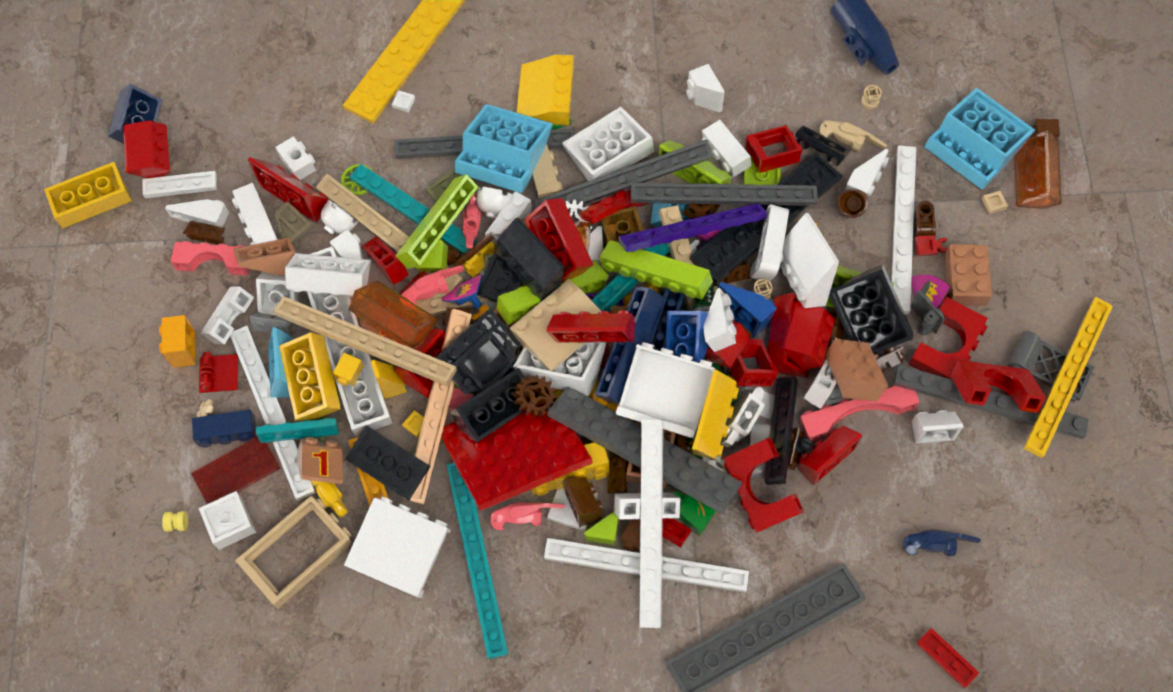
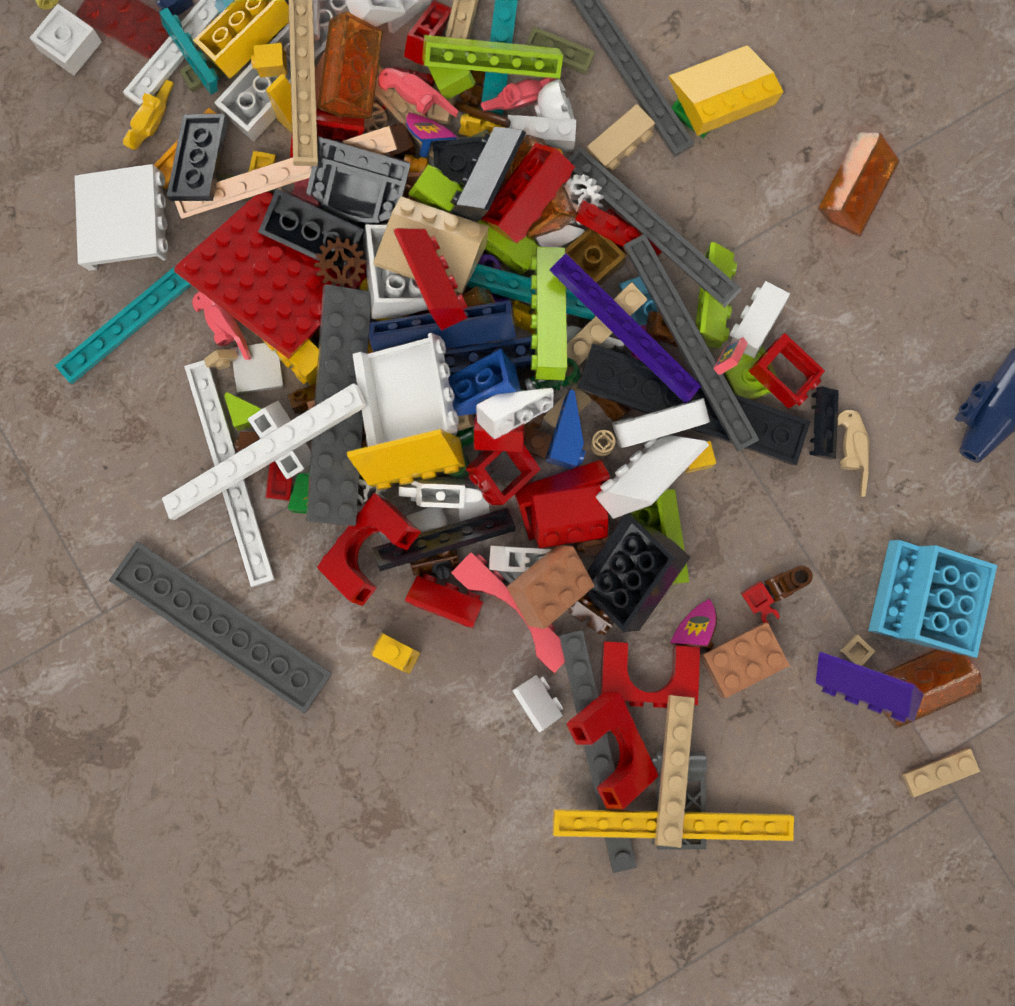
camera: 55 degrees right, 15 degrees up
(246, 562) = (25, 104): tan door -> none
(320, 460) = (160, 90): nougat slope -> none
(502, 147) = (622, 77): medium azure slope -> none
(554, 526) = (221, 358): none -> tan plate
(582, 500) = (258, 371): reddish brown slope -> none
(609, 145) = (691, 190): white slope -> none
(661, 44) = (859, 183): none -> clear orange slope
(705, 89) = (822, 255): white slope -> none
(747, 173) = (730, 356): none -> coral tile
(850, 507) = (395, 653): none -> yellow torso
(852, 203) = (764, 491): reddish brown hair -> none
(868, 173) = (806, 489): white slope -> none
(871, 97) = (916, 452): tan wheel -> none
(903, 224) = (770, 562): white plate -> none
(931, 317) = (663, 643): dark grey hinge -> none
(935, 542) = (405, 759): dark blue animal -> none
(947, 658) = (283, 826): red plate -> none
(1027, 201) = (868, 687): none -> dark purple slope
(1031, 354) = (674, 771): none -> tan plate
(1043, 125) = (991, 670): reddish brown brick -> none
(1103, 193) = (940, 772): none -> tan plate

